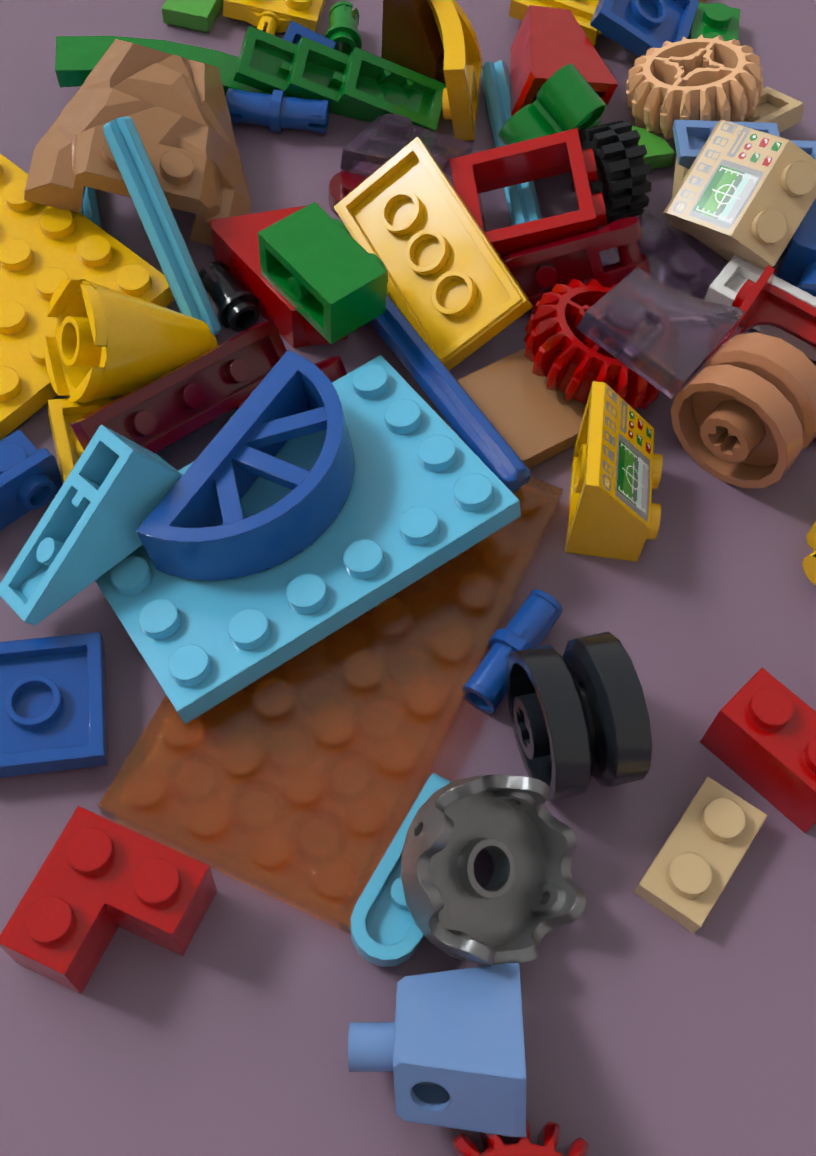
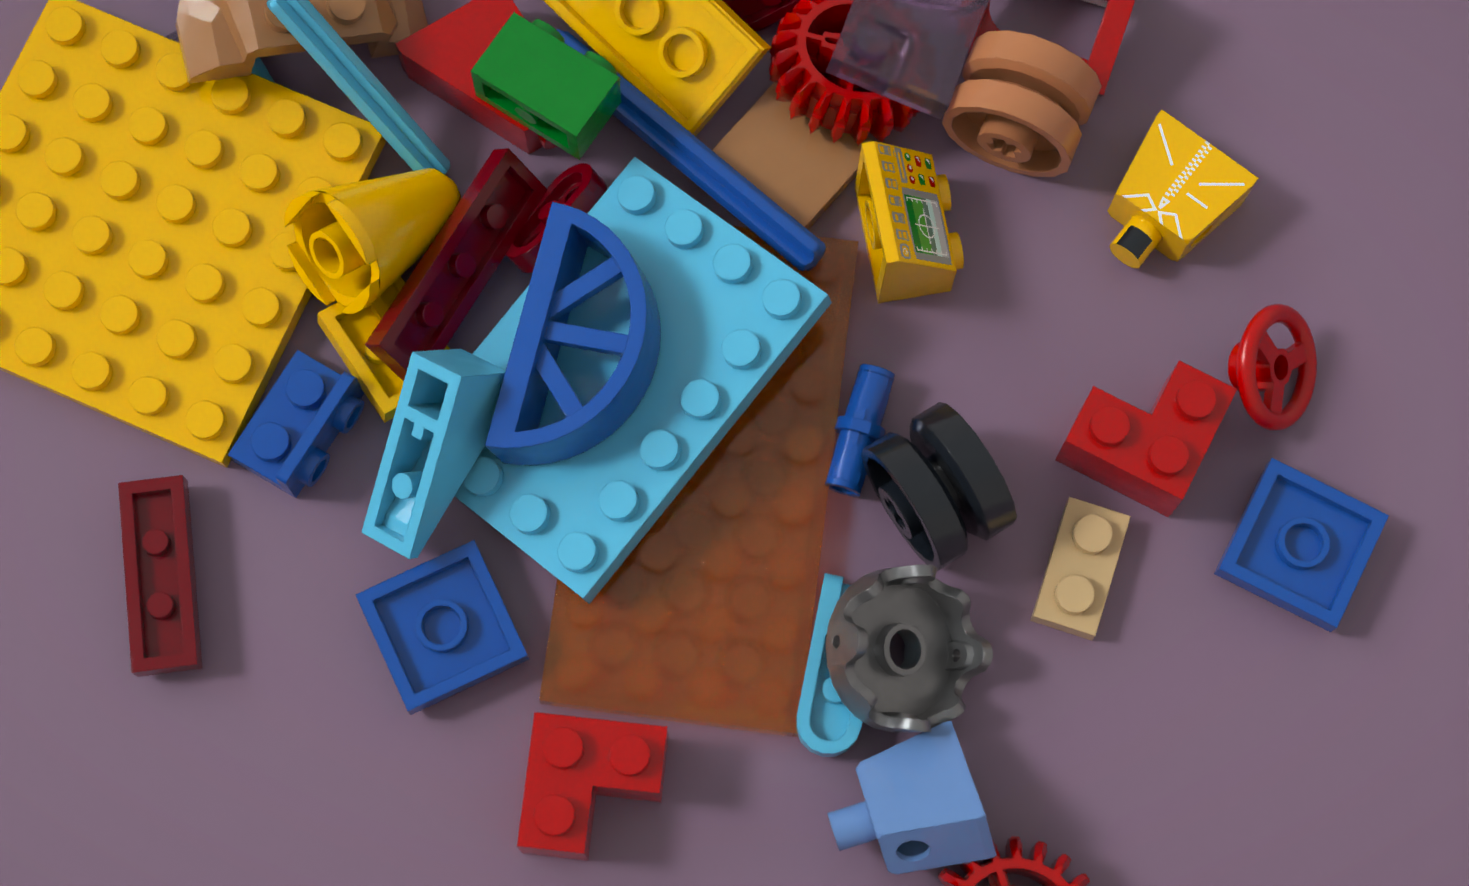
camera: 15 degrees left, 15 degrees up
(230, 298) = (443, 120): black pin -> none

